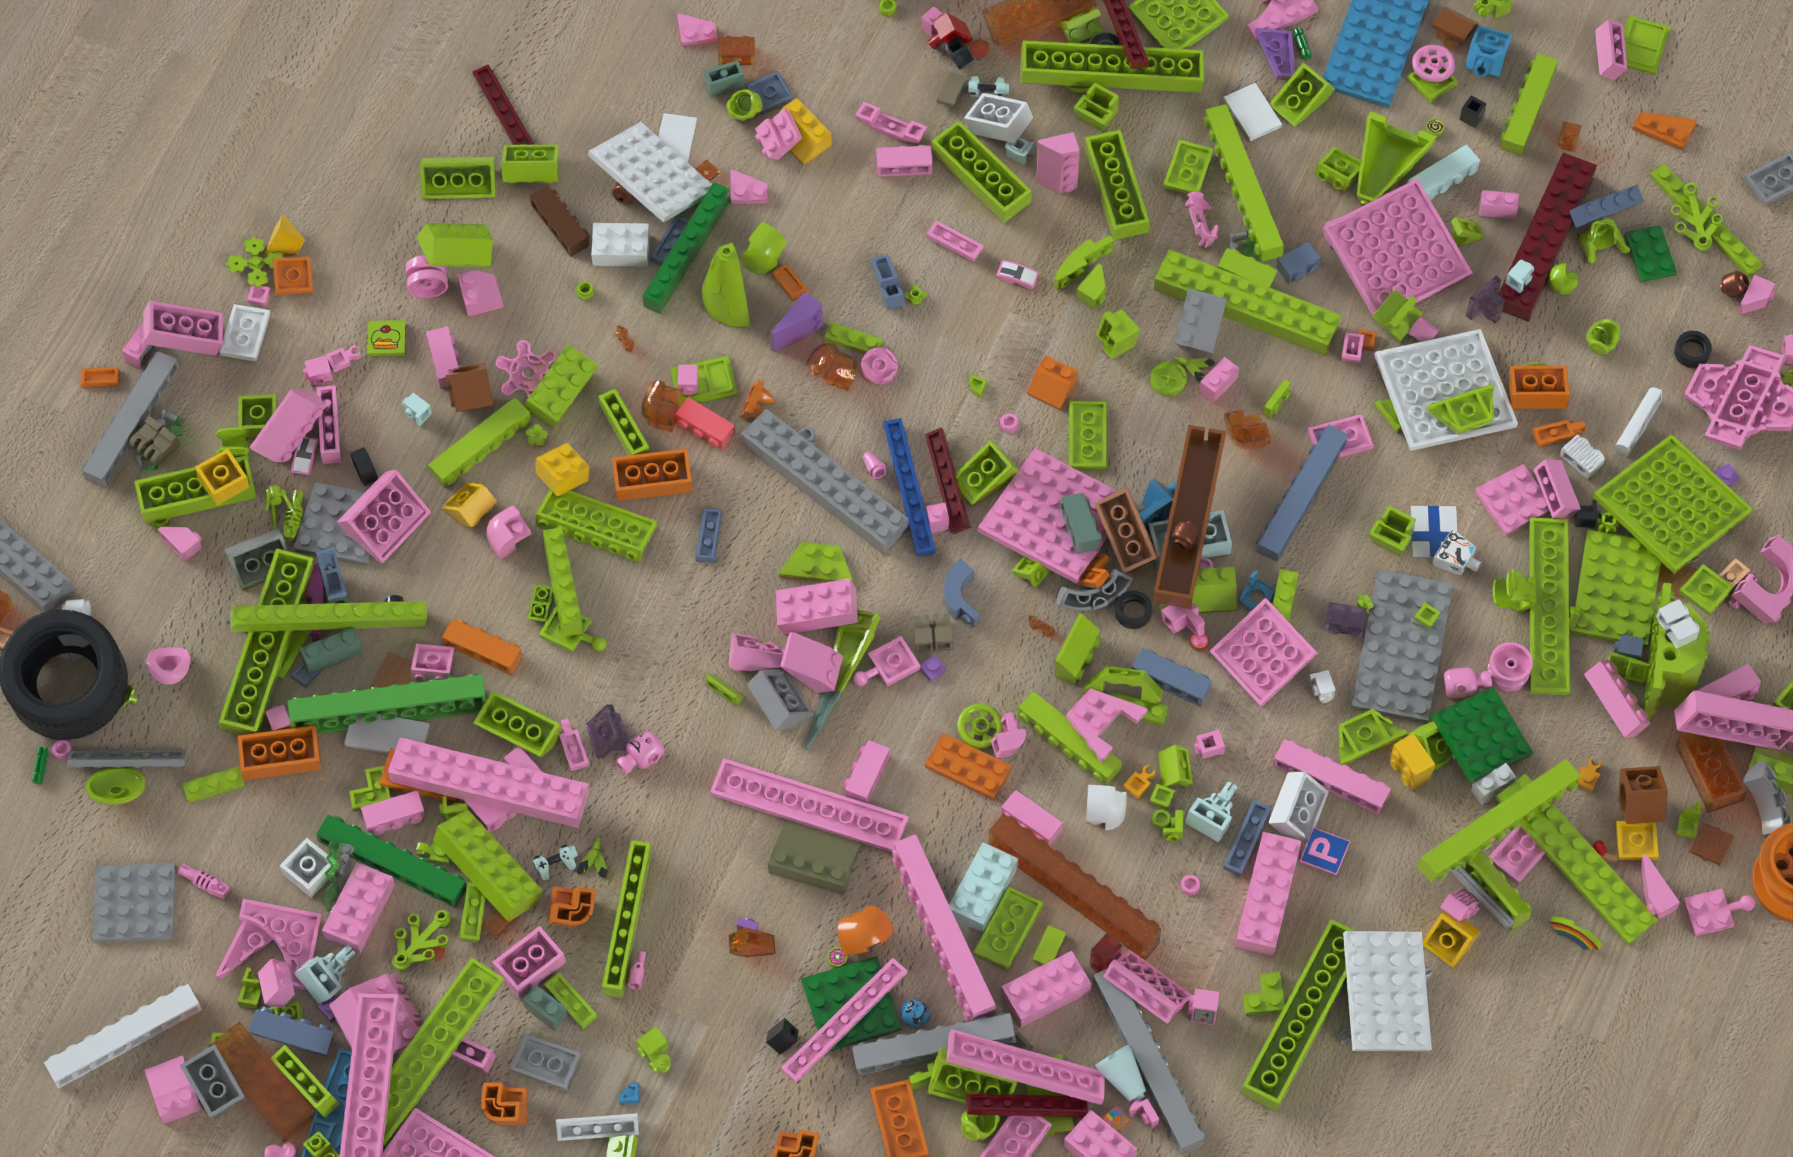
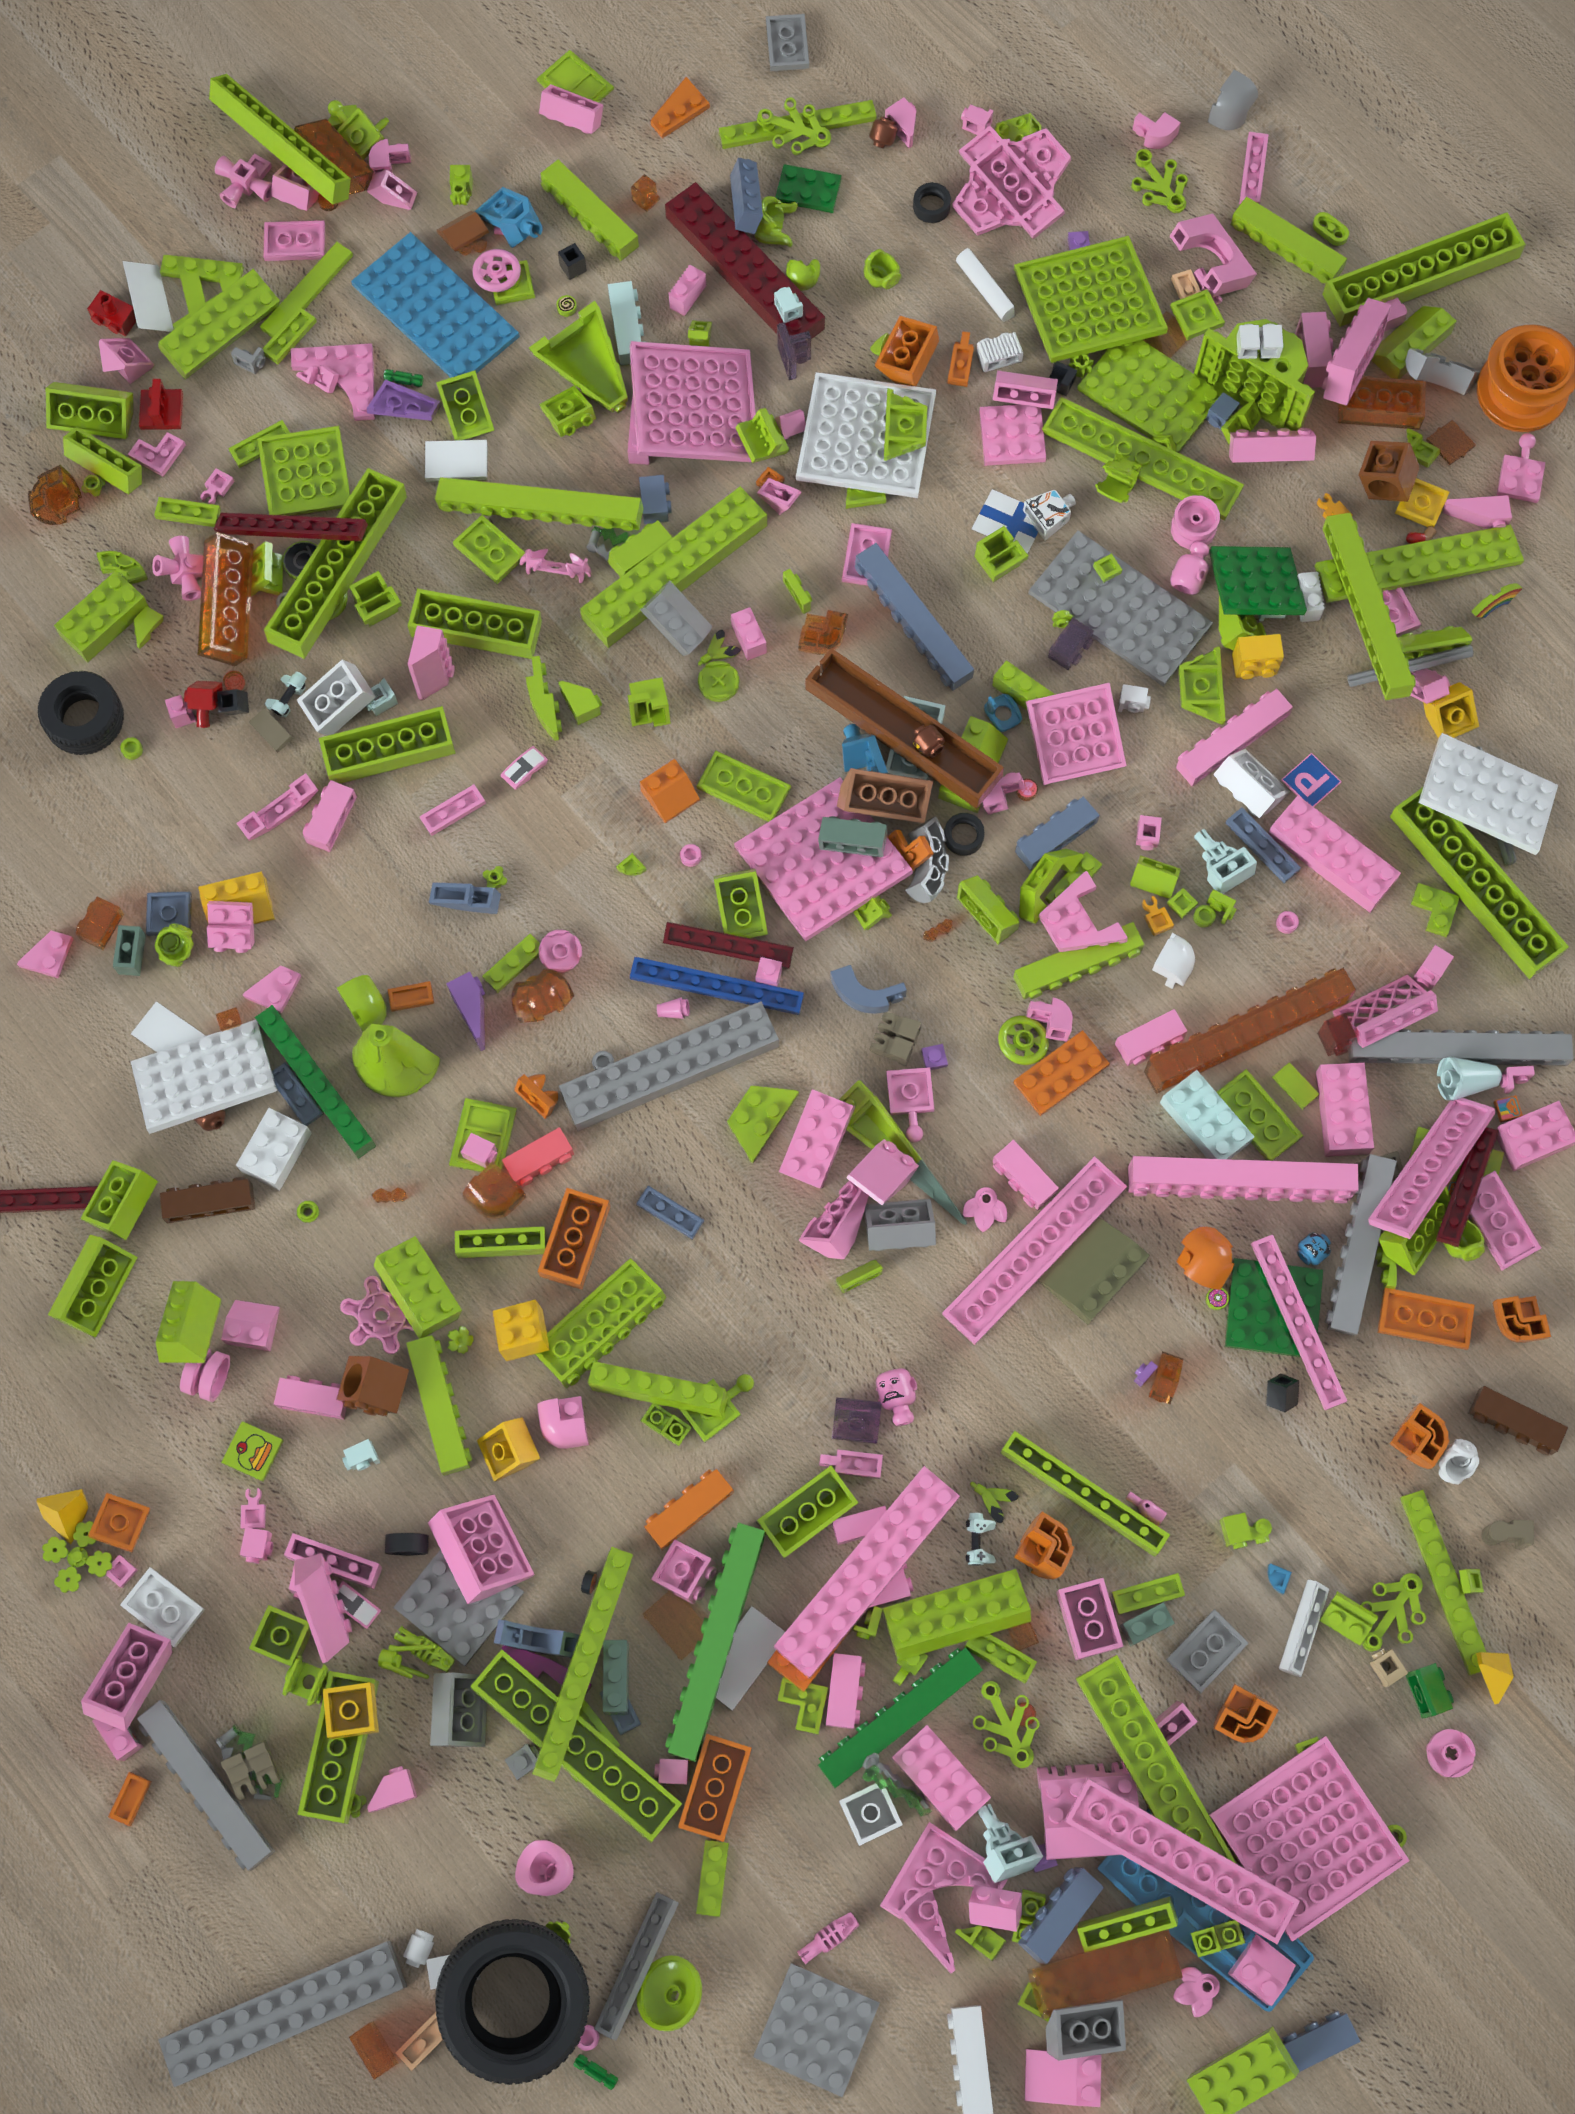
camera: 65 degrees left, 10 degrees up
(822, 758) = (985, 1212): none -> bright pink plate

